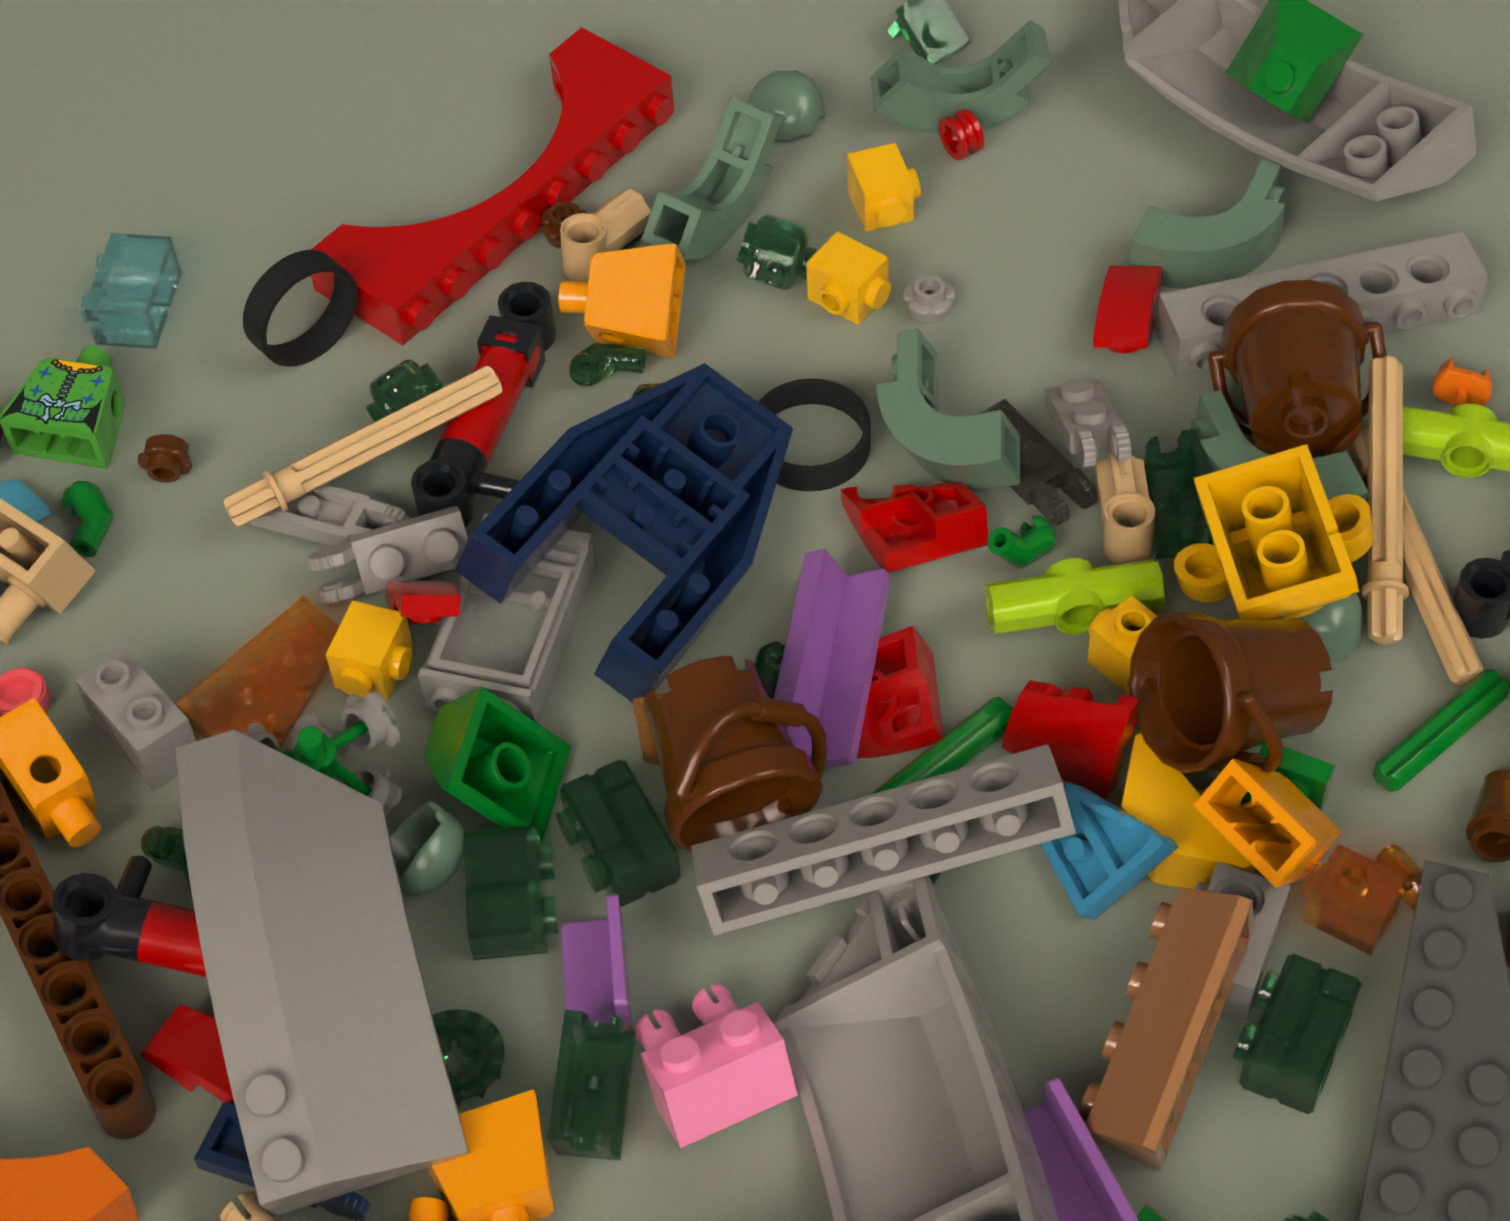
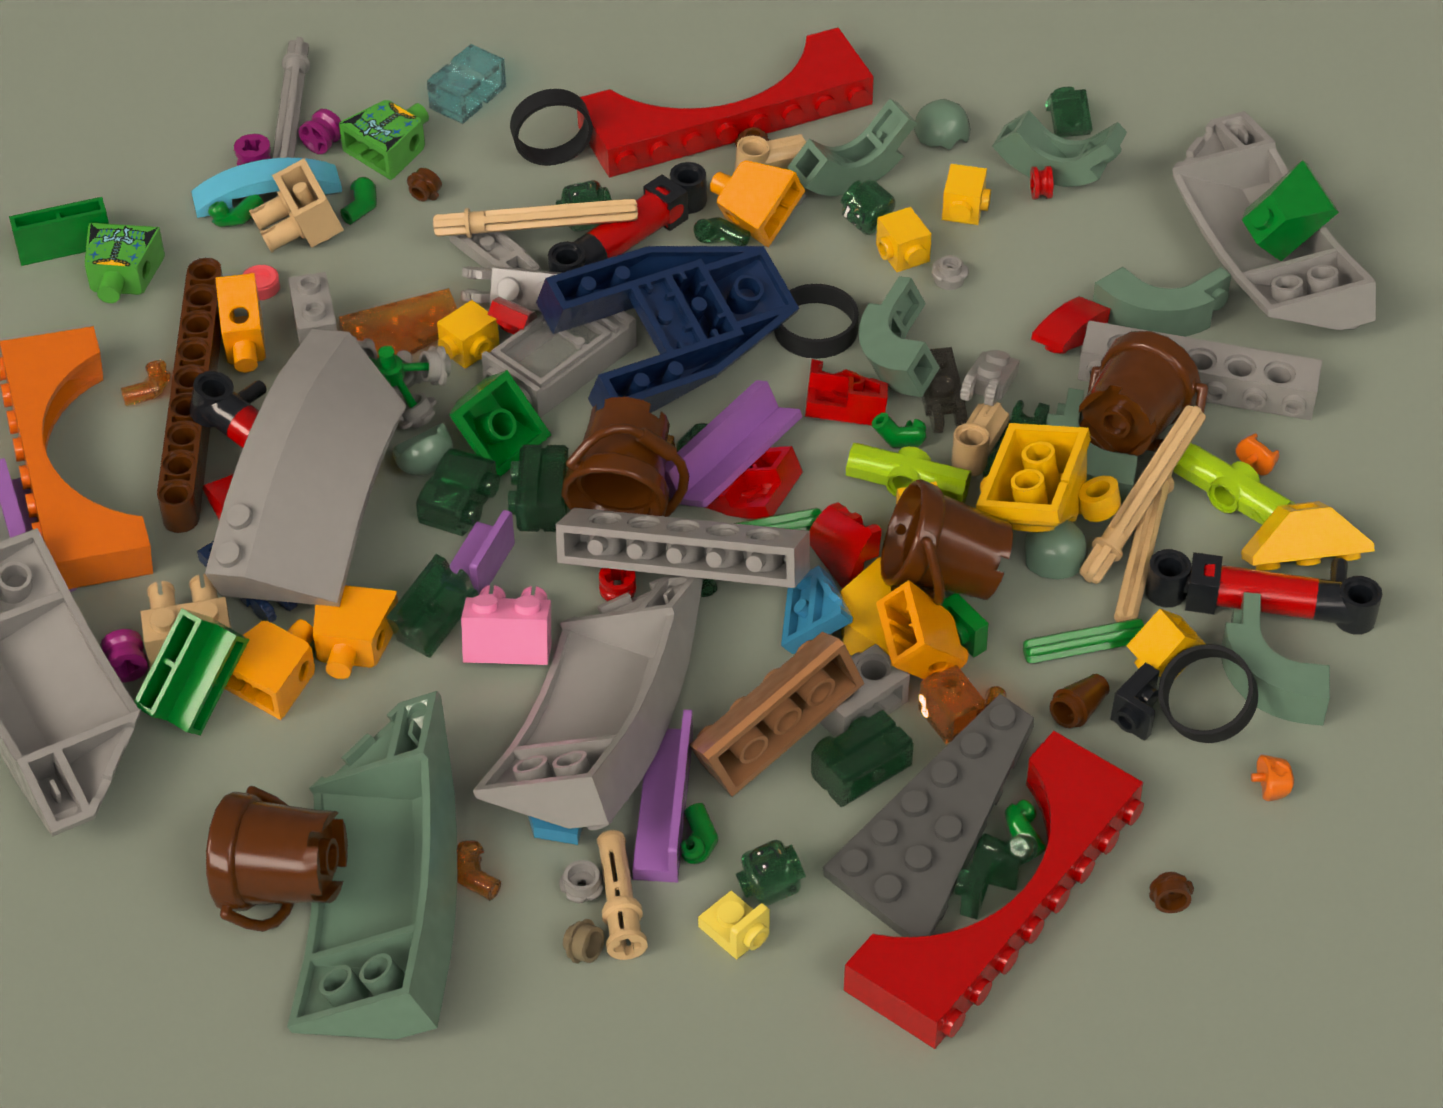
camera: 25 degrees right, 5 degrees down
(478, 1042) = (369, 551): clear green gear -> none
(806, 943) = (609, 590): none -> red bush

